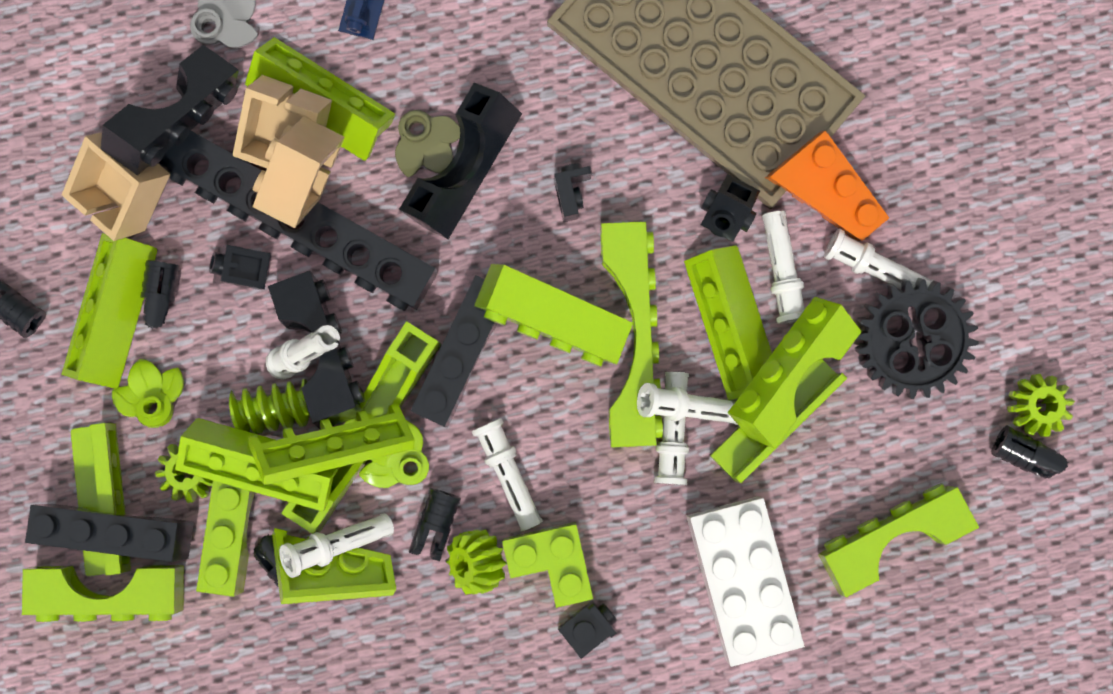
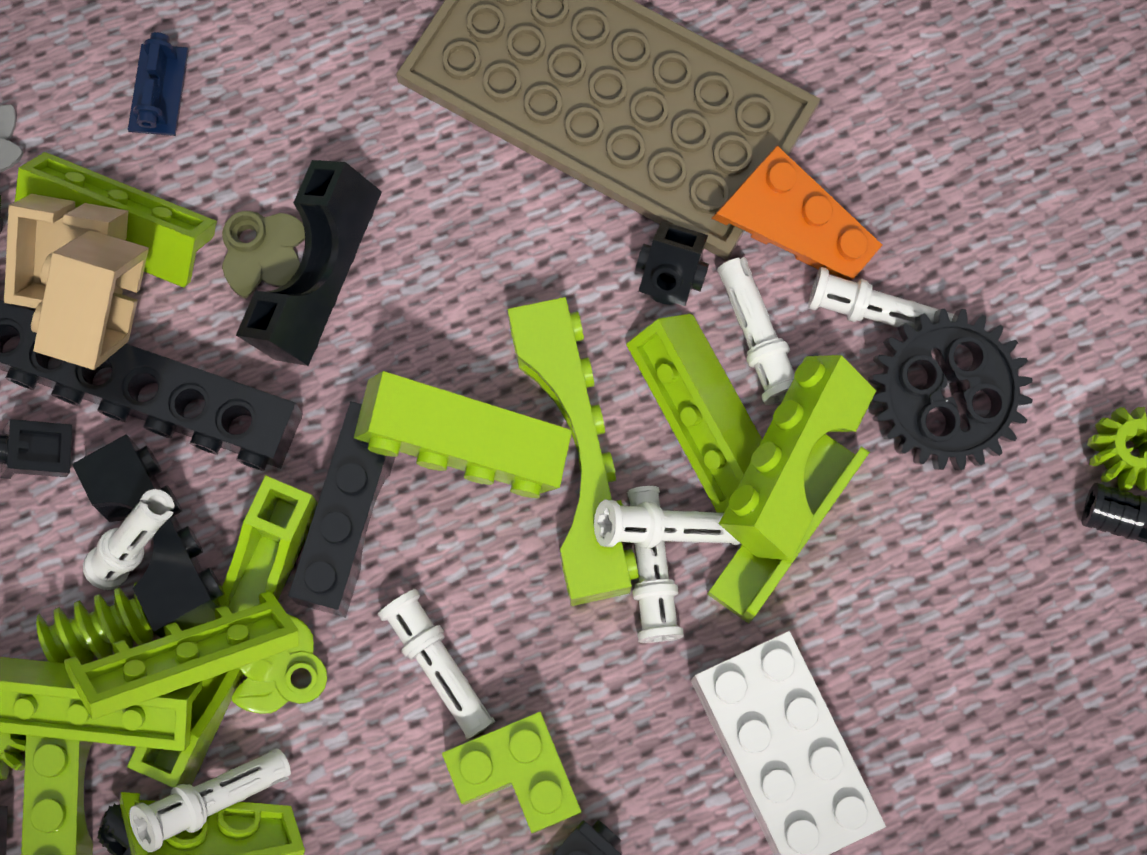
camera: 10 degrees left, 10 degrees down
(436, 516) = (349, 738): black hinge -> none
(475, 562) = (410, 791): lime gear -> none
(568, 197) = (459, 286): black bracket -> none
(855, 560) = (933, 700): lime arch -> none

